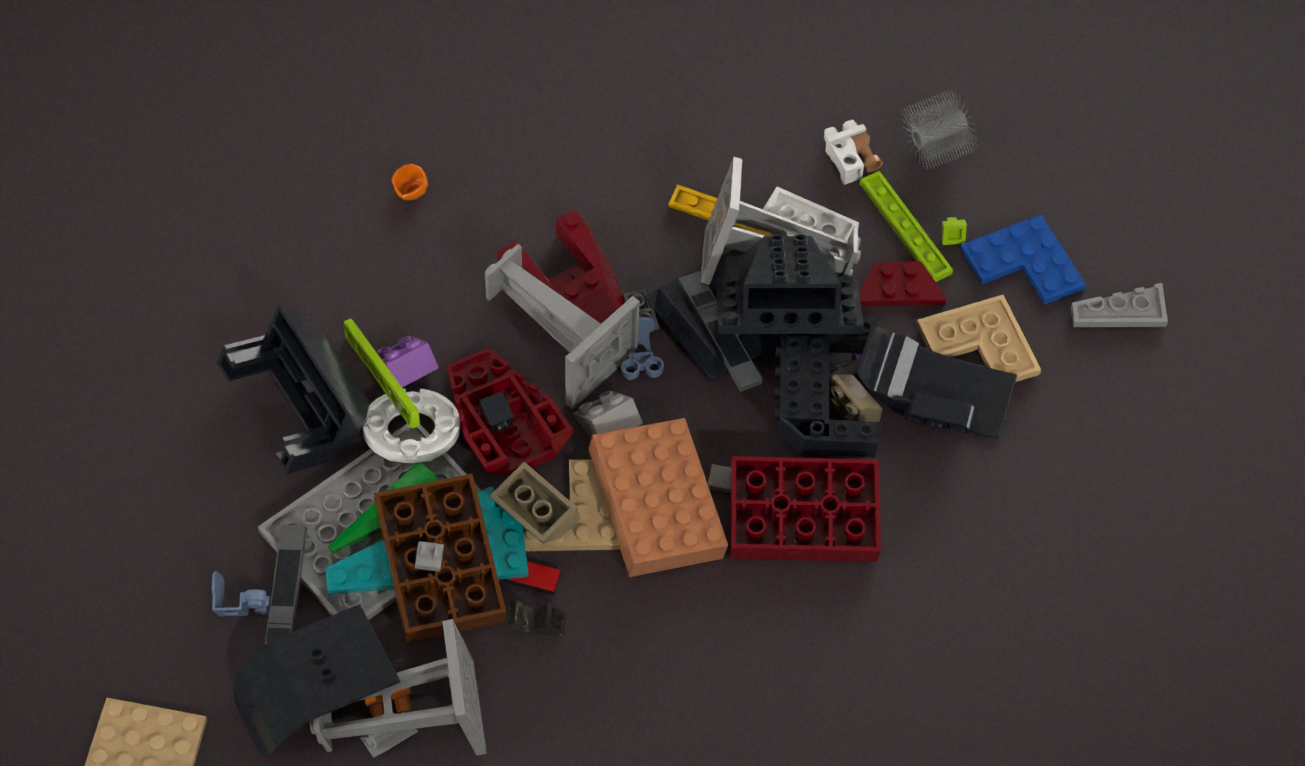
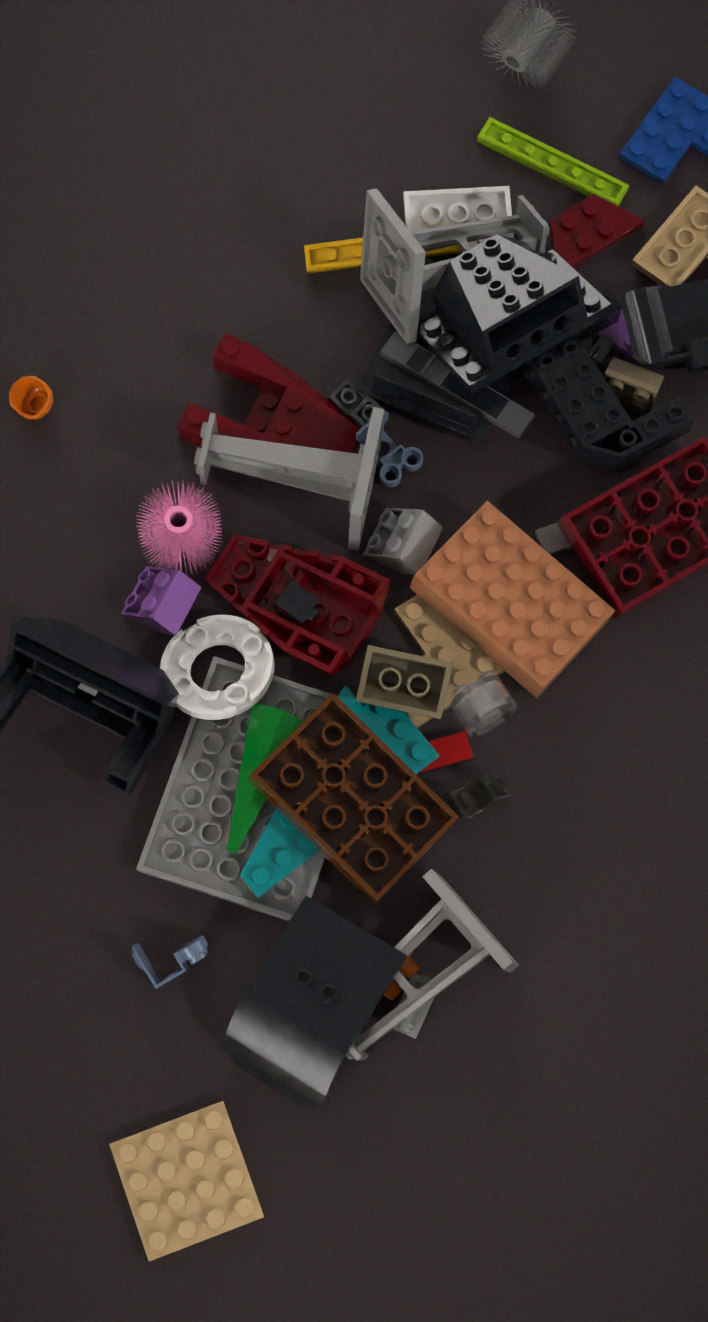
camera: 30 degrees left, 15 degrees up
(286, 581) = (211, 919): tile -> none
(381, 373) = (150, 629): lime tile -> none
(429, 556) = (350, 807): light grey tile -> none
(450, 318) = (179, 528): none -> bright pink piece
(584, 555) = (482, 703): none -> clear brick
(844, 151) = (442, 110): white hips -> none
(953, 231) = (605, 142): lime tile -> none

